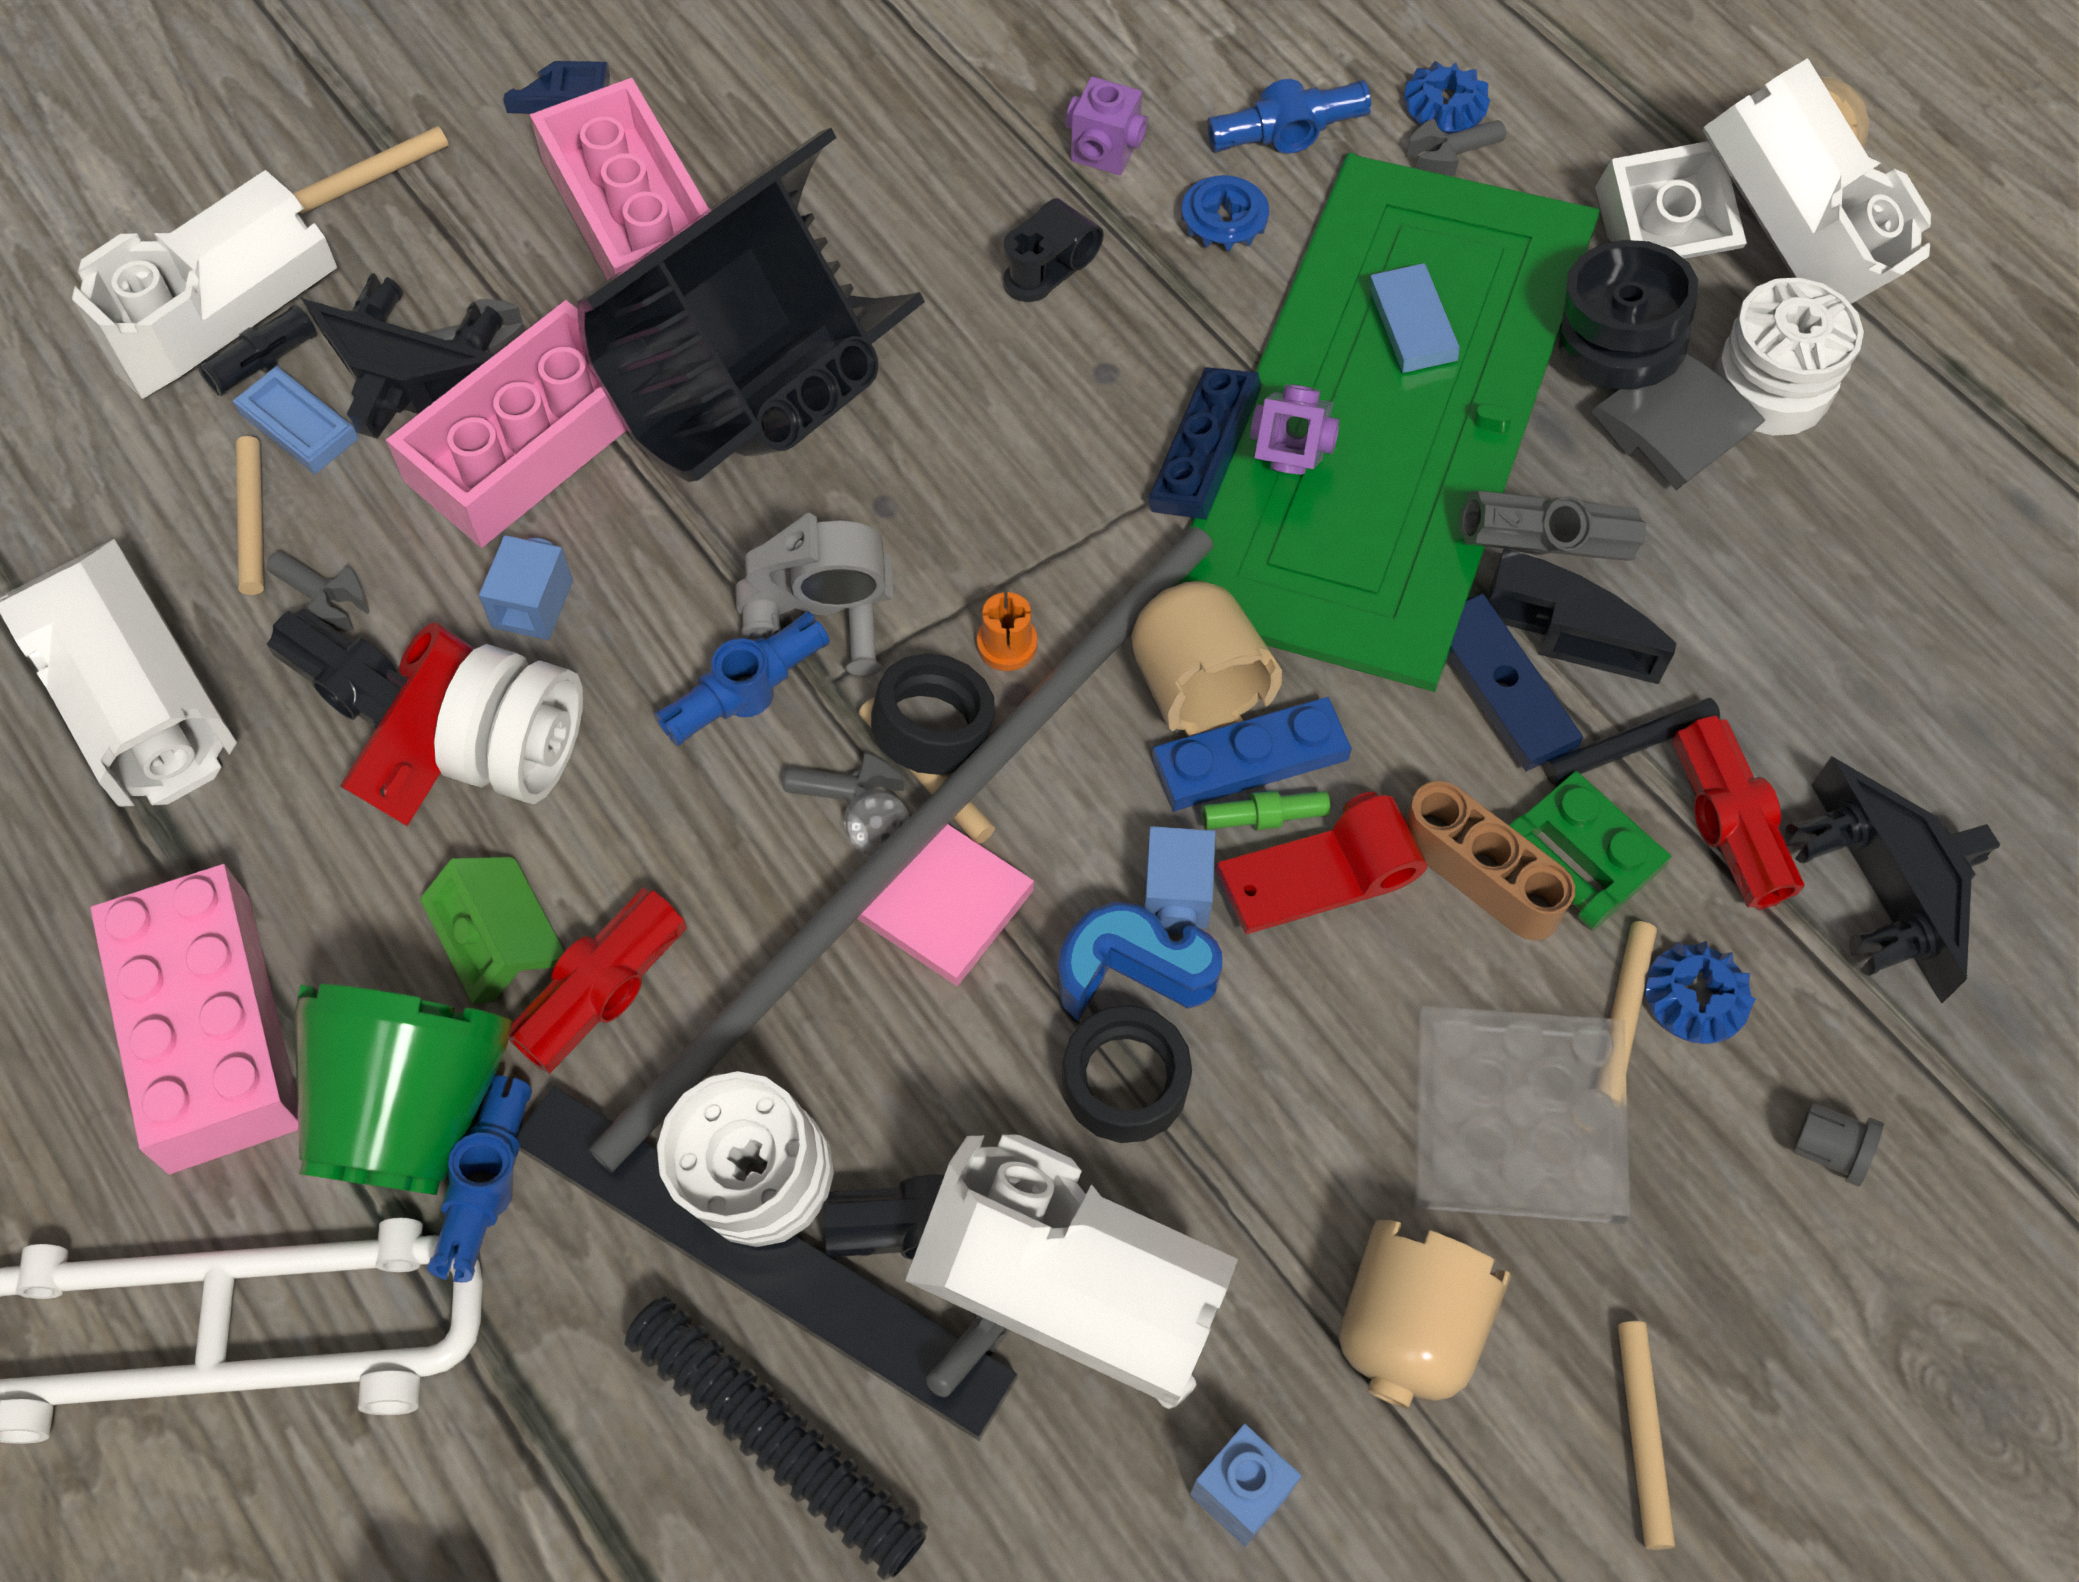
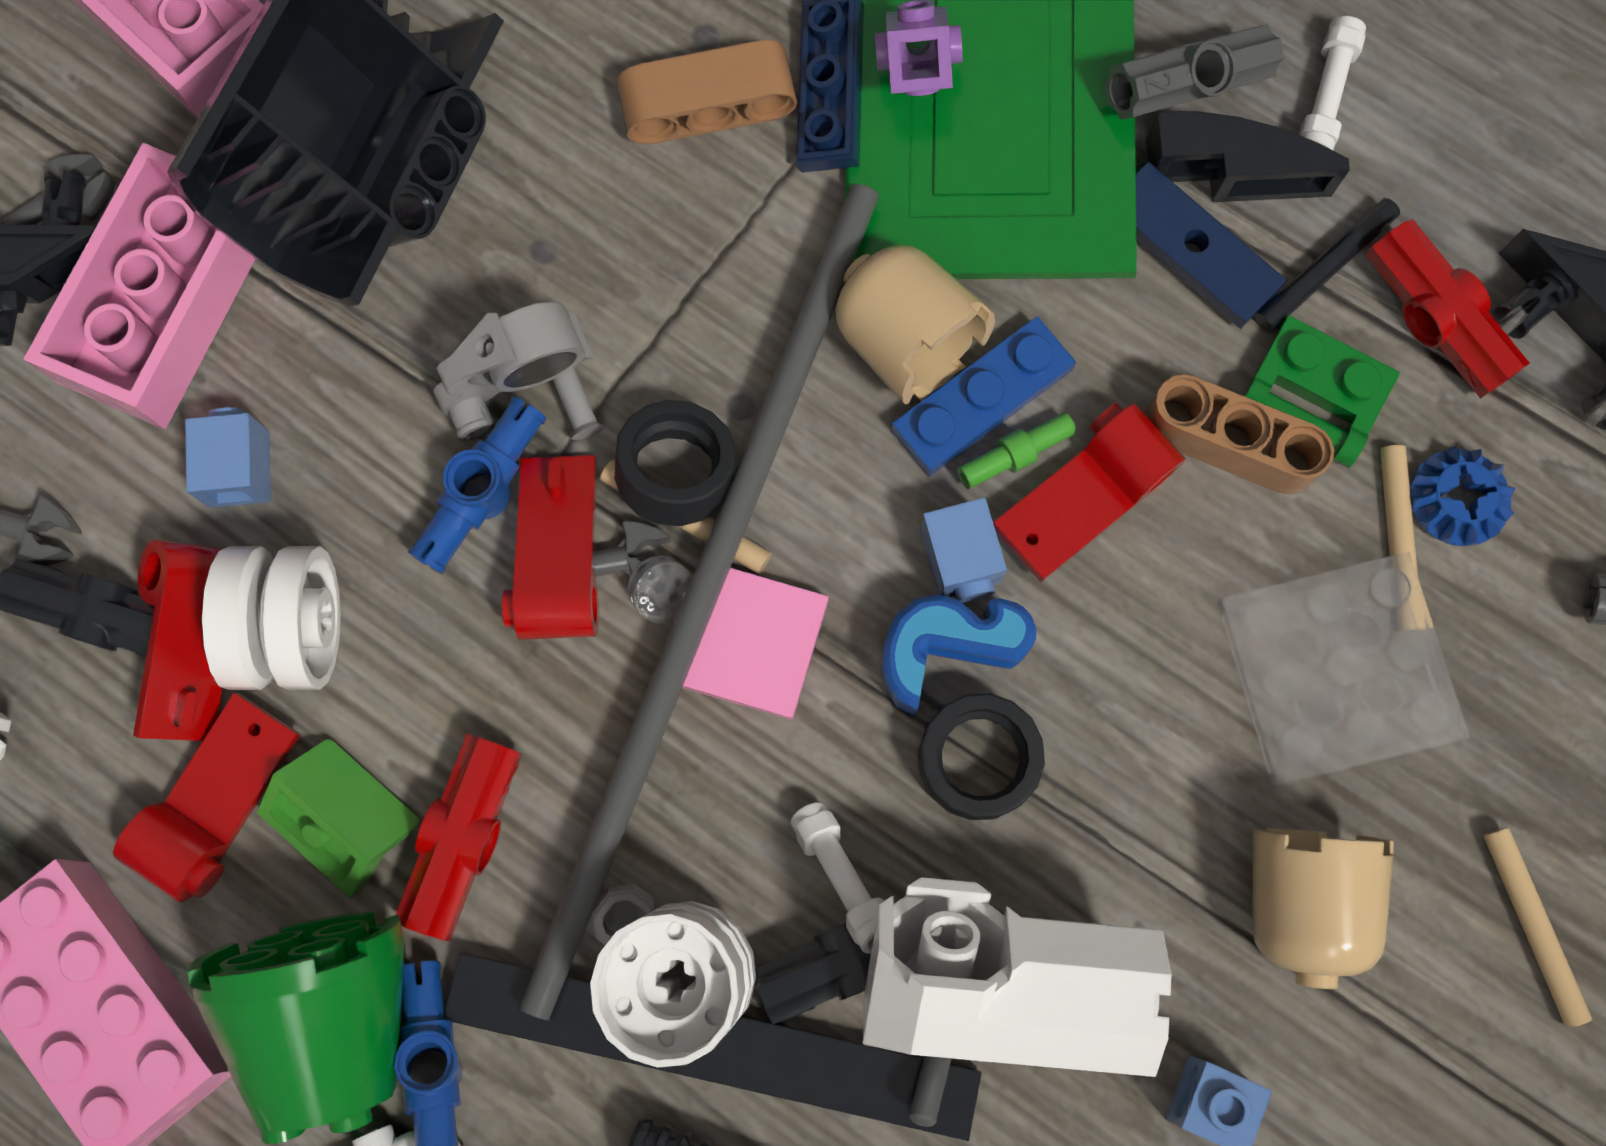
camera: 15 degrees left, 15 degrees up
(350, 898) = (186, 837): none -> red door
(782, 772) = (554, 551): none -> red door
(941, 1097) = (820, 836): none -> white bar
(993, 637) = (697, 360): orange bush -> none
(1087, 415) = (706, 92): none -> medium nougat beam
(1707, 556) = (1340, 48): none -> white bar

